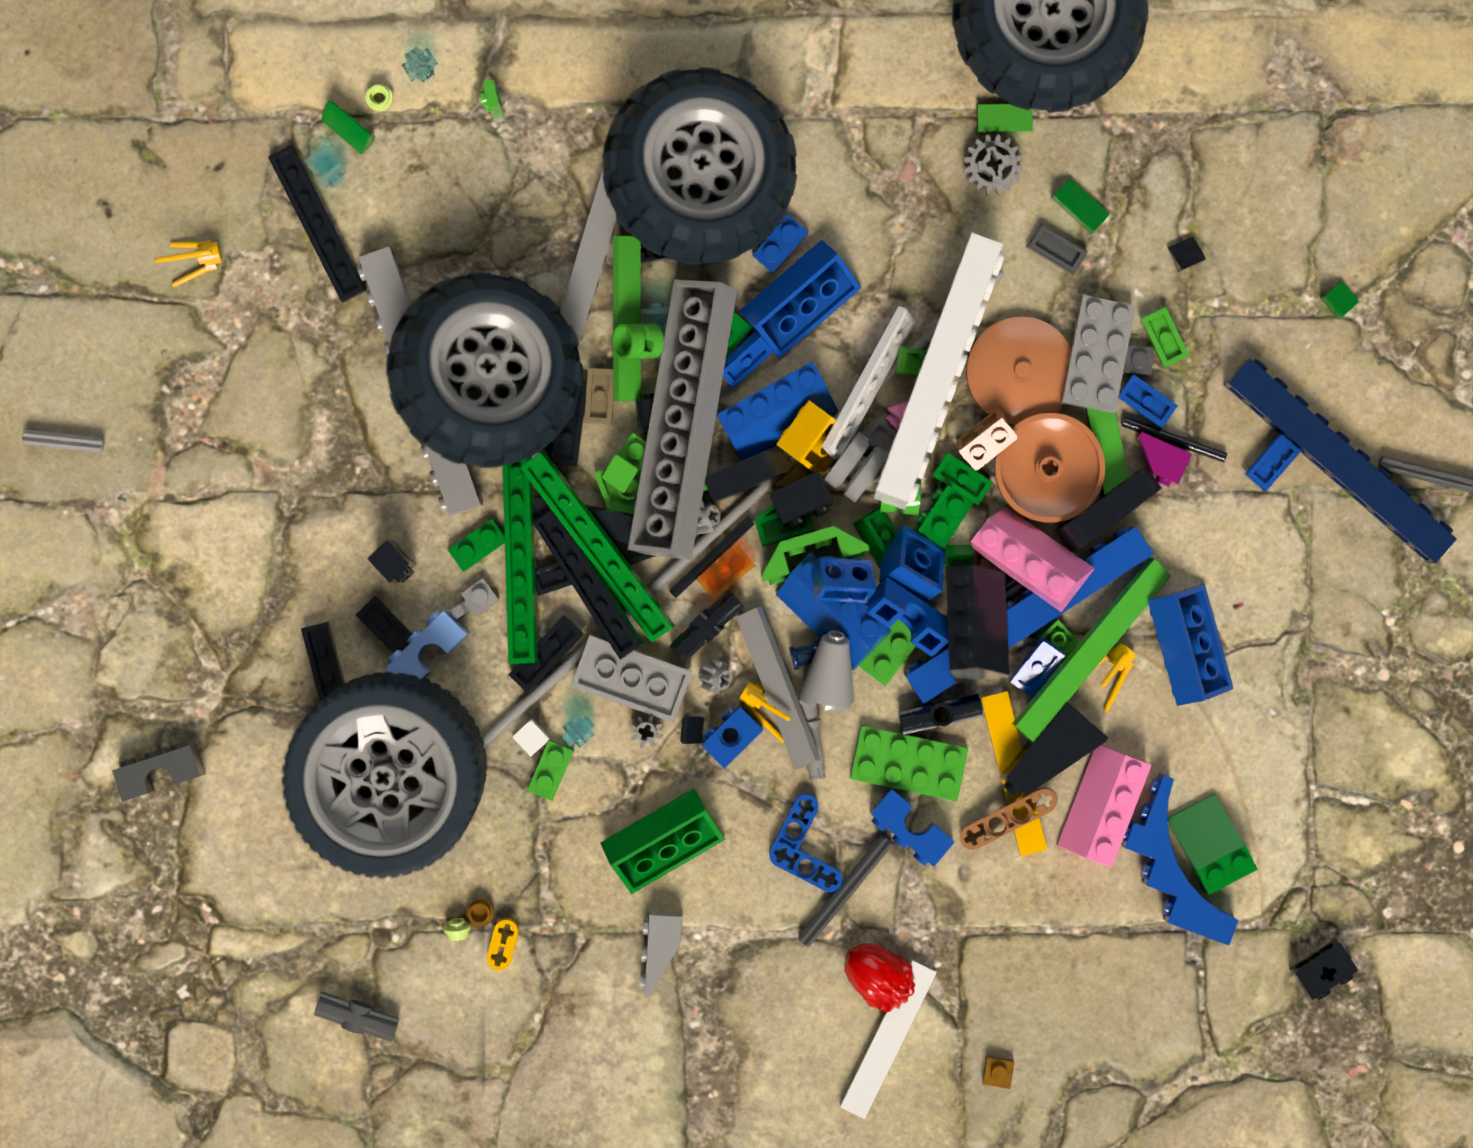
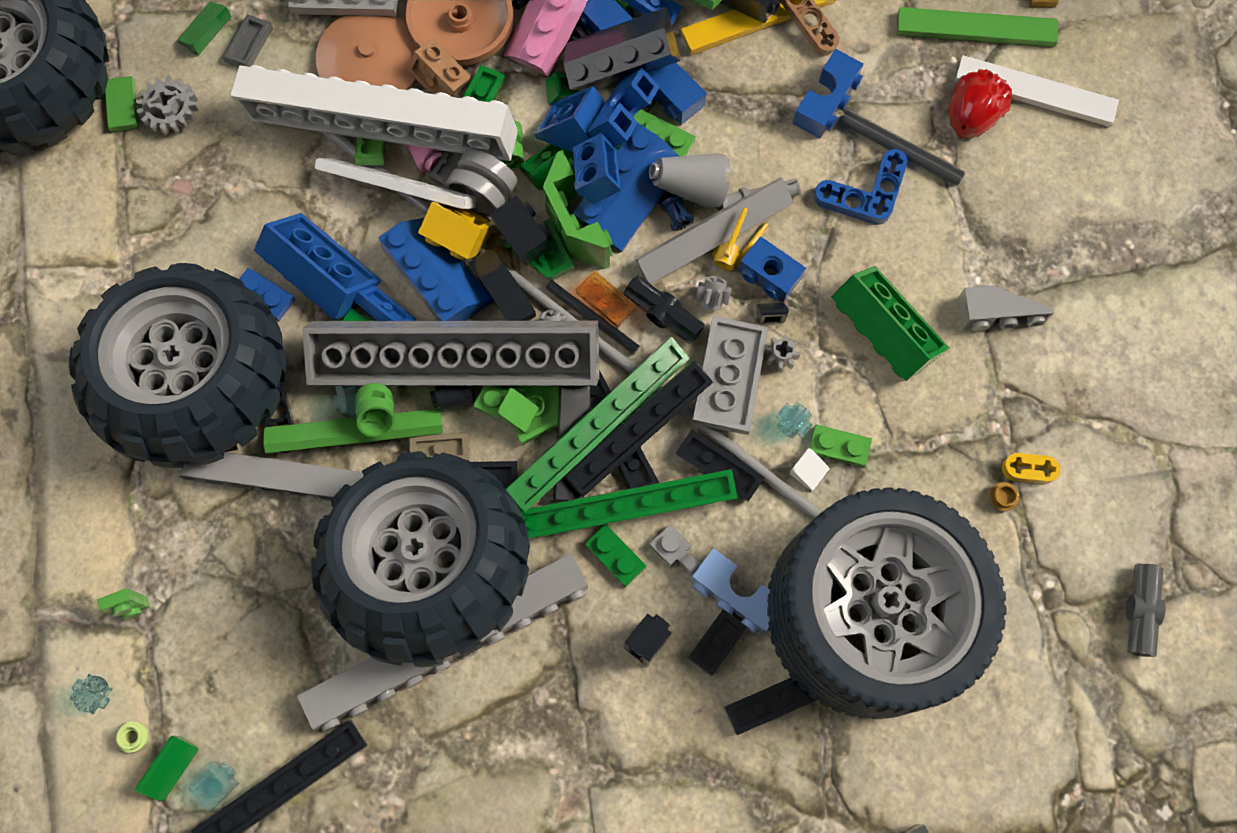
camera: 100 degrees left, 15 degrees down
(457, 929) = (1027, 516): yellowish green plate -> none
(909, 763) = (766, 108): bright green plate -> none
(944, 516) = (523, 105): green bracket -> none
(958, 710) = (718, 94): black piece -> none
(968, 995) = (977, 27): none -> bright green tile

